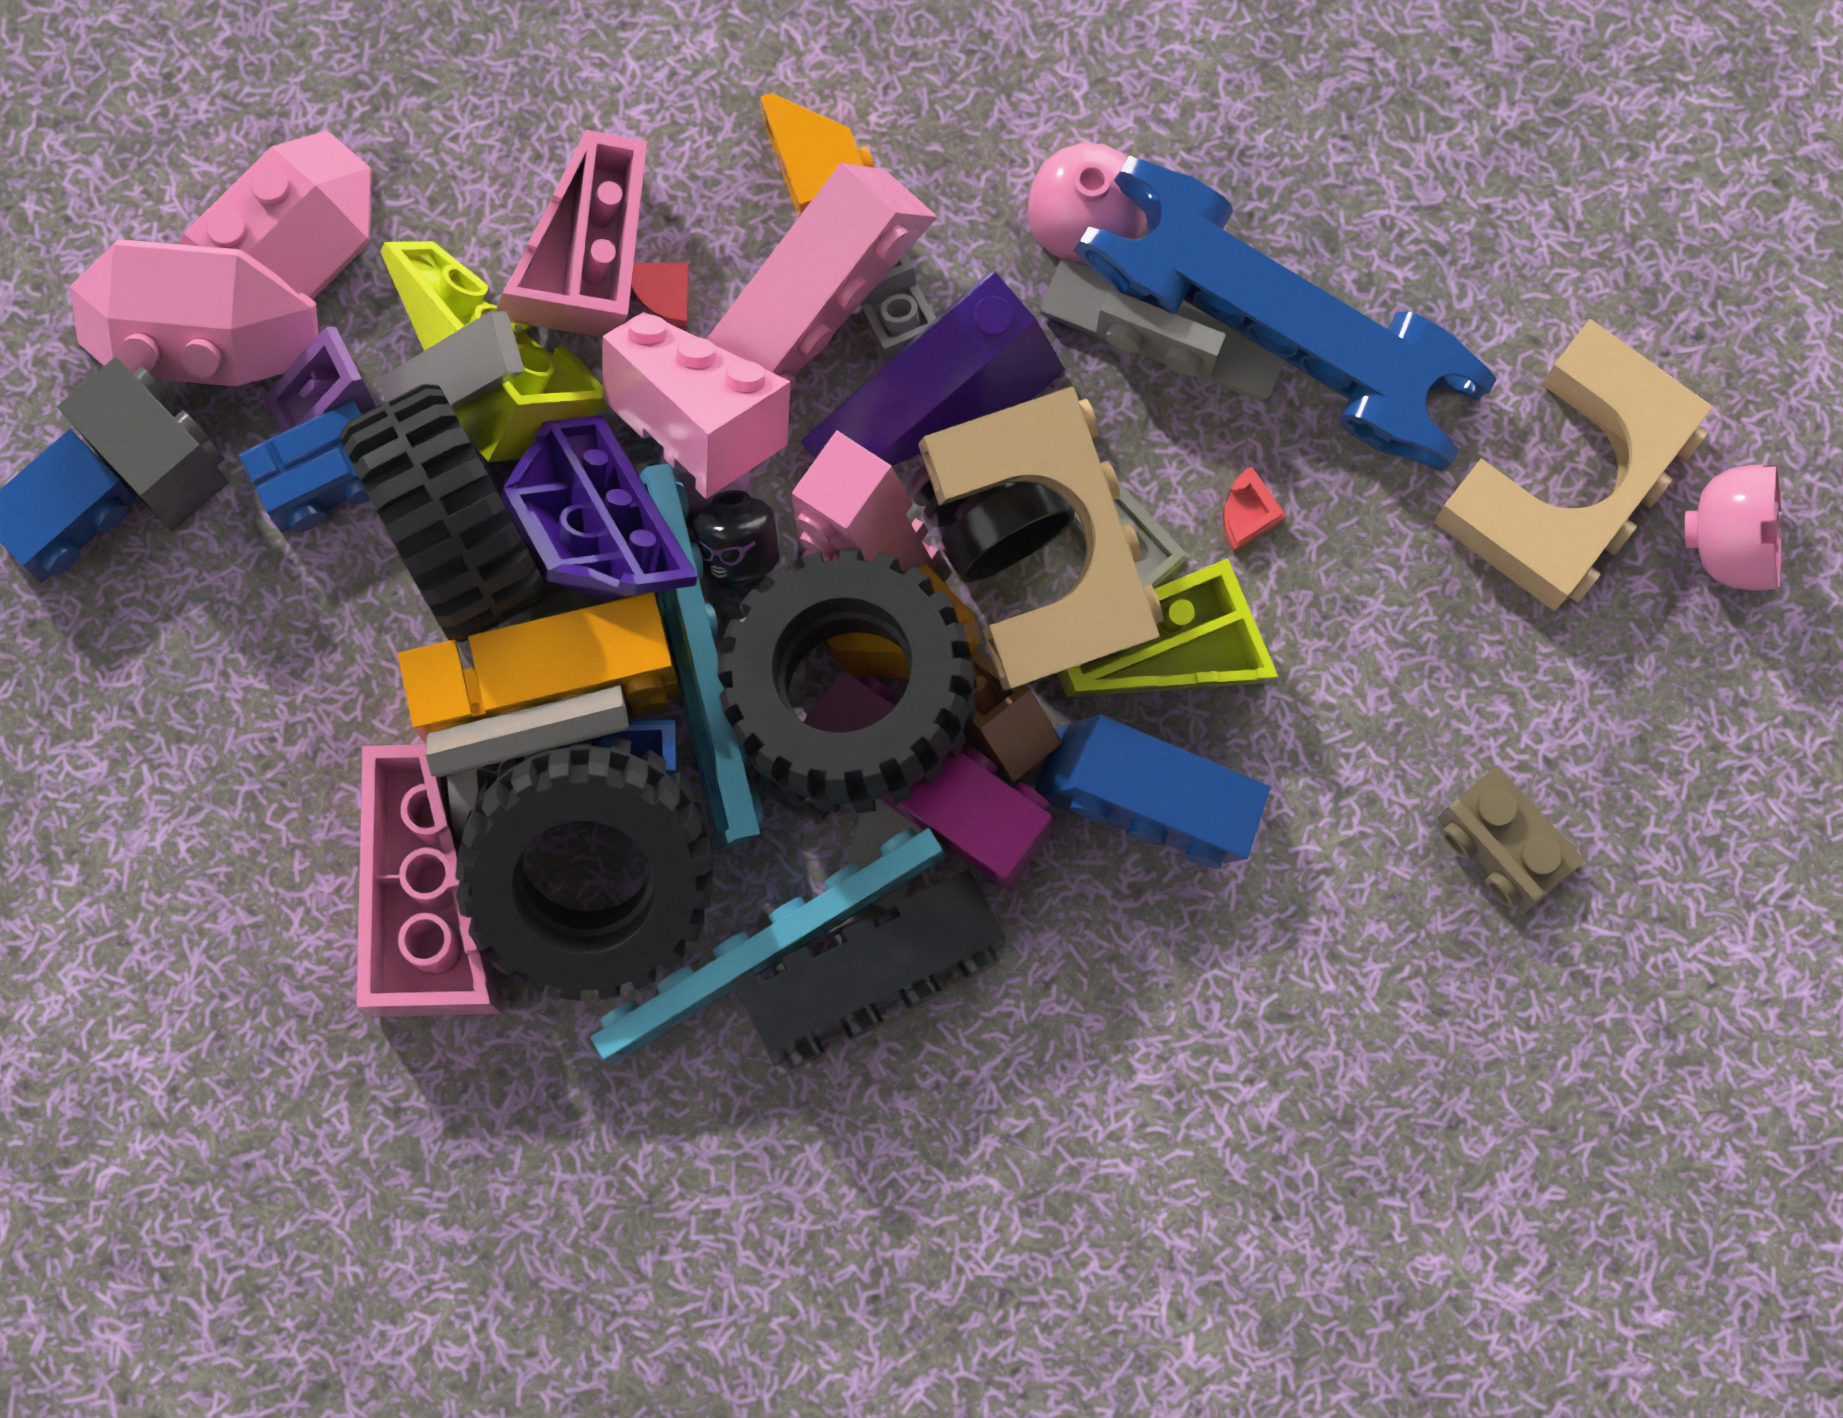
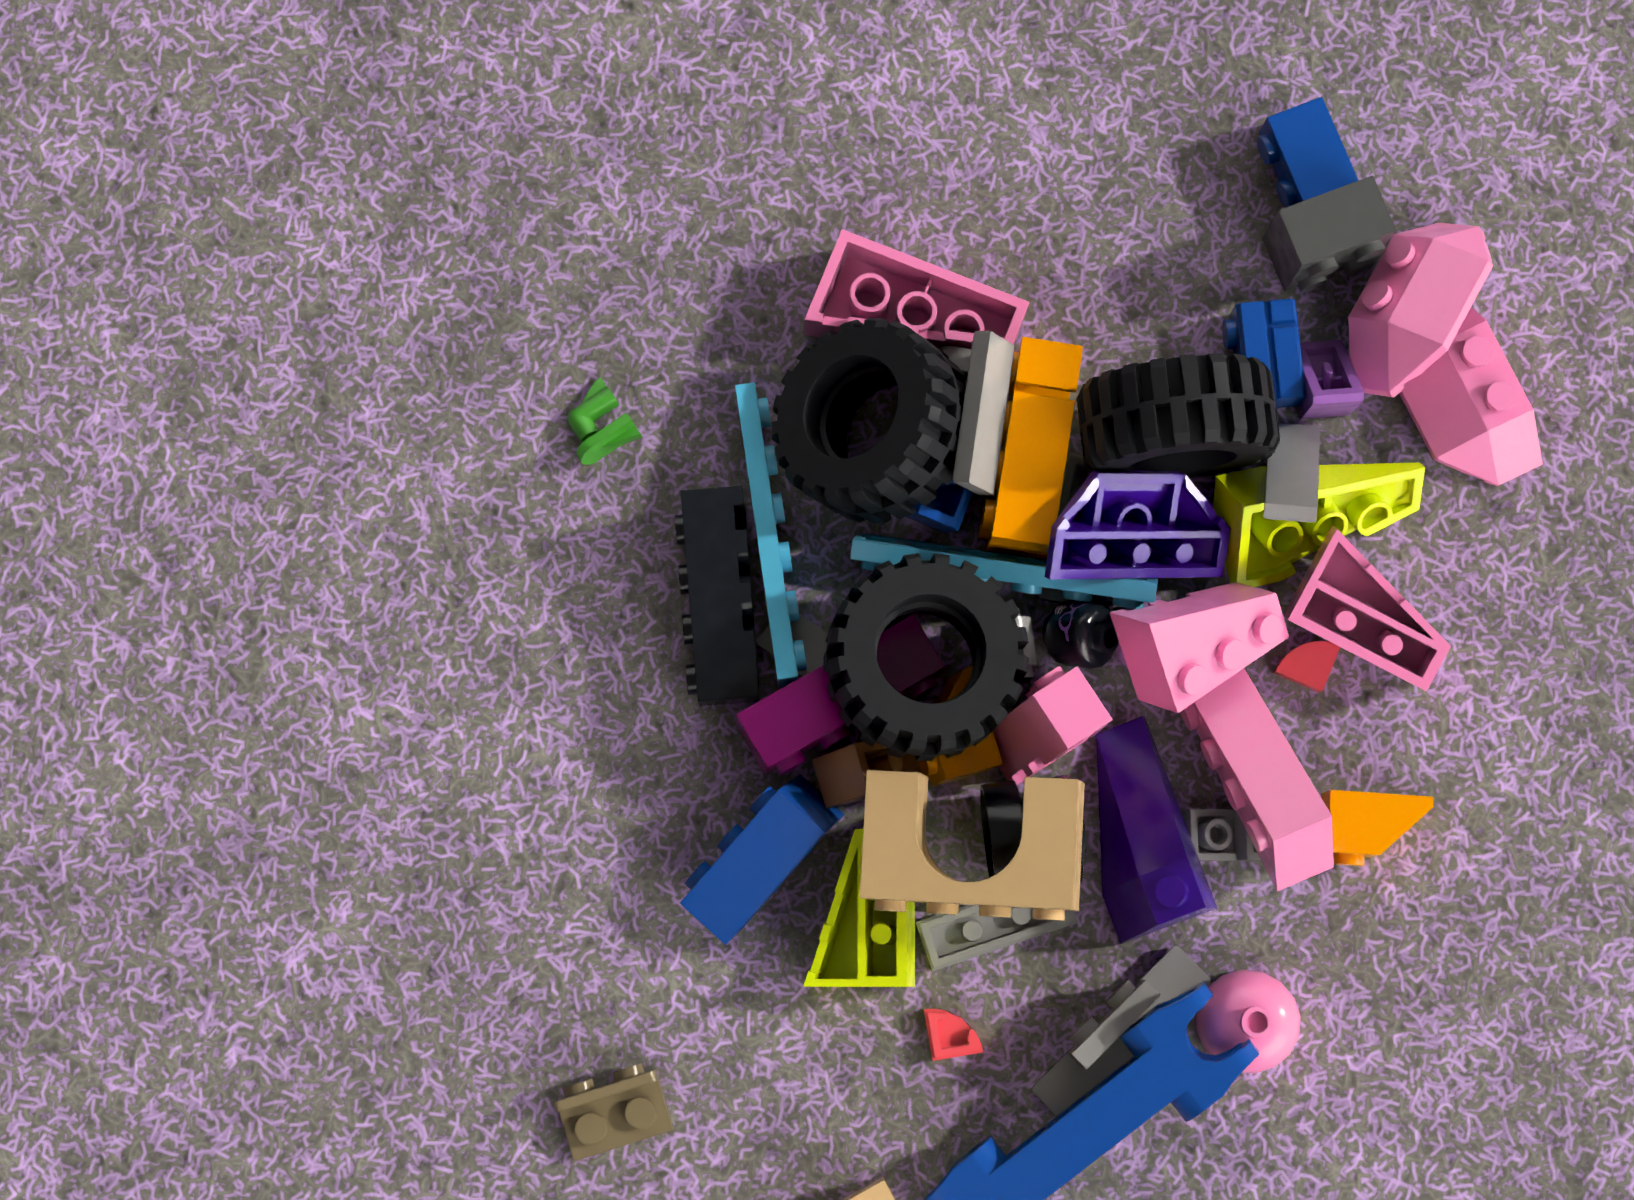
camera: 115 degrees right, 5 degrees up
(717, 1240) = (598, 442): none -> bright green piece

